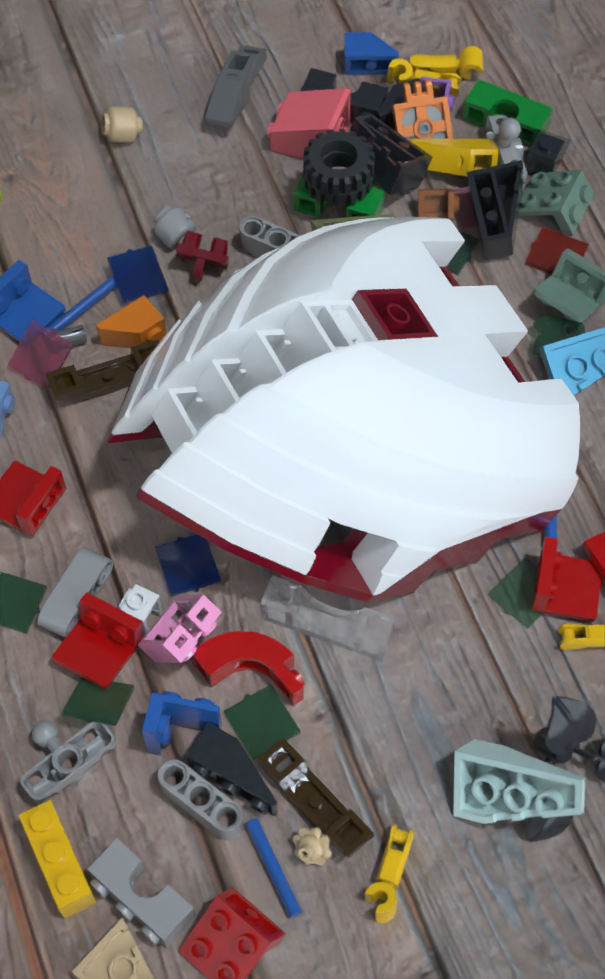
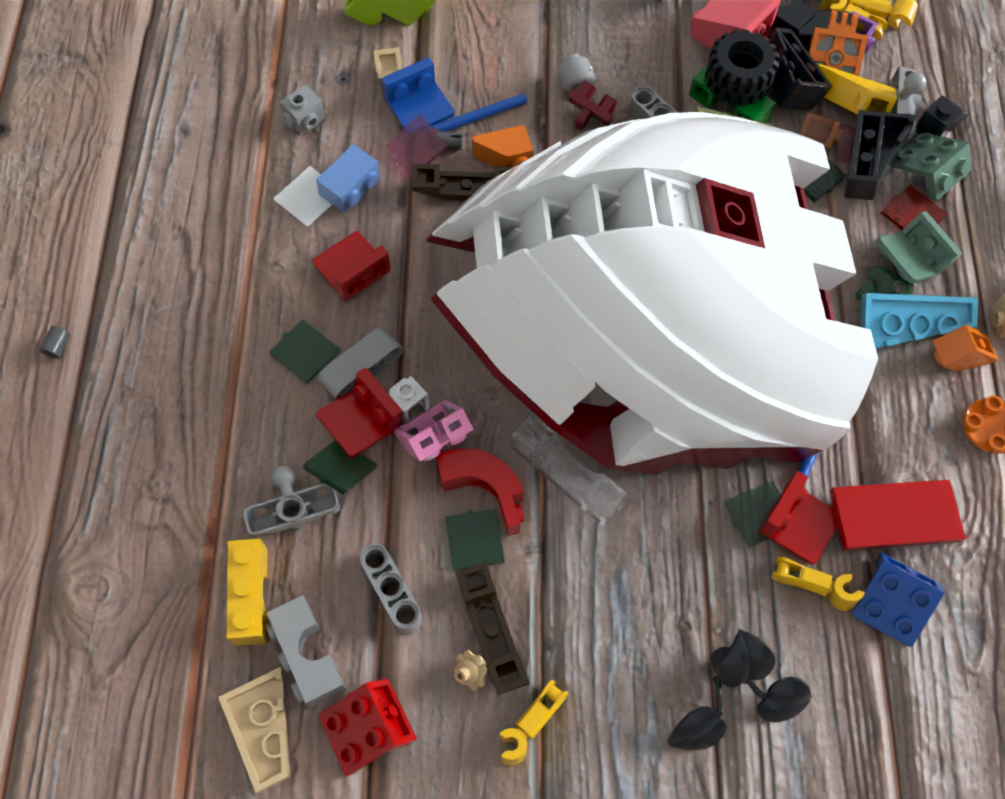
camera: 20 degrees right, 5 degrees up
(137, 274) = (528, 105): clear blue piece -> none
(174, 710) = (385, 498): blue bracket -> none
(187, 564) = (465, 376): clear blue piece -> none
(225, 761) = (425, 561): black slope -> none
(273, 868) = (430, 675): blue bar -> none
(490, 100) = (908, 52): green arch -> none
(507, 784) = (667, 686): light aqua wedge -> none

